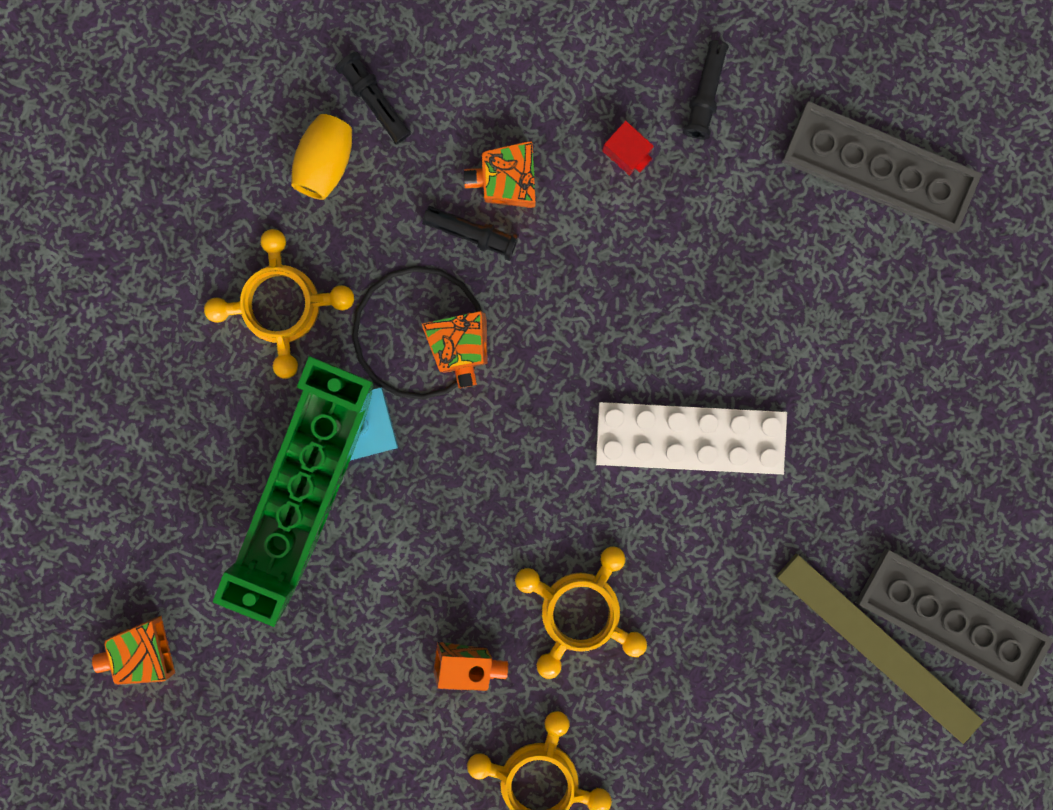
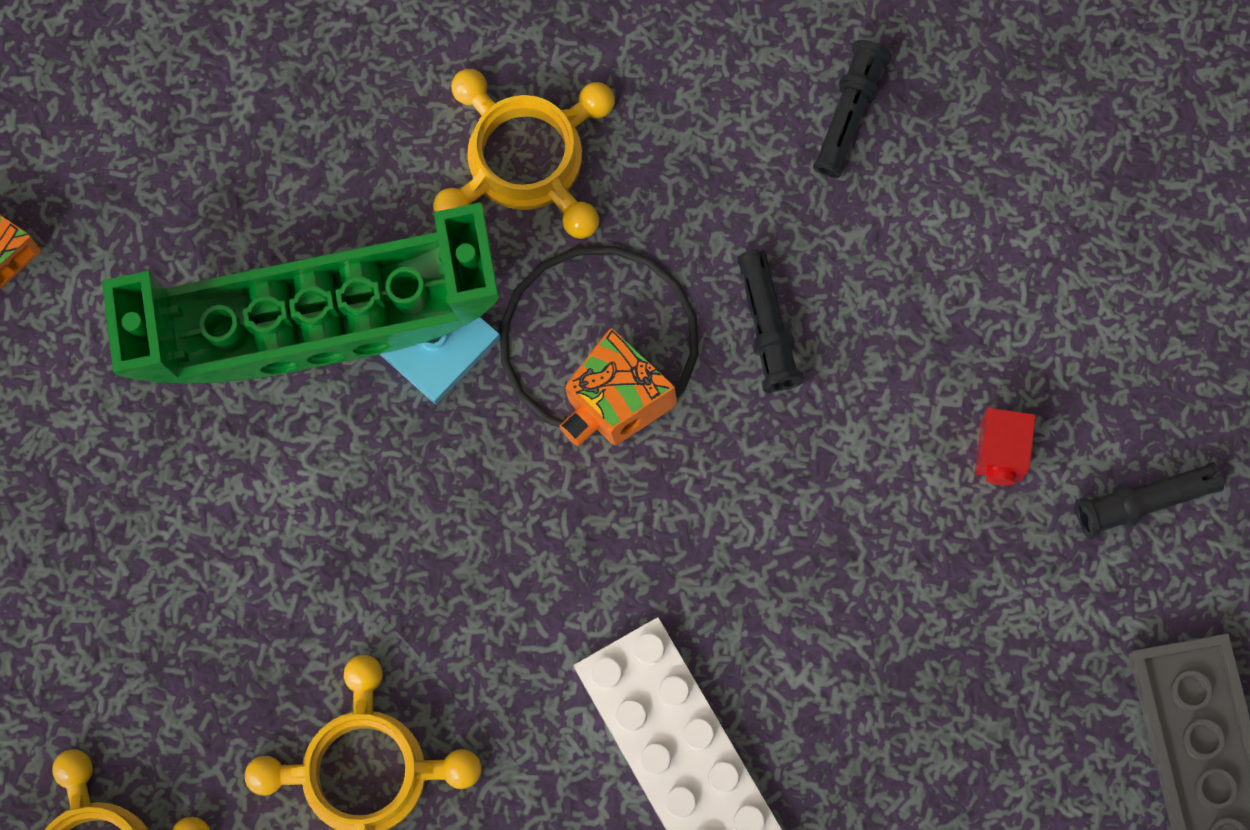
camera: 55 degrees right, 15 degrees down
(321, 156) = (737, 89): yellow piece -> none
(454, 667) = (187, 643): orange torso -> none
(505, 176) = (866, 318): torso -> none

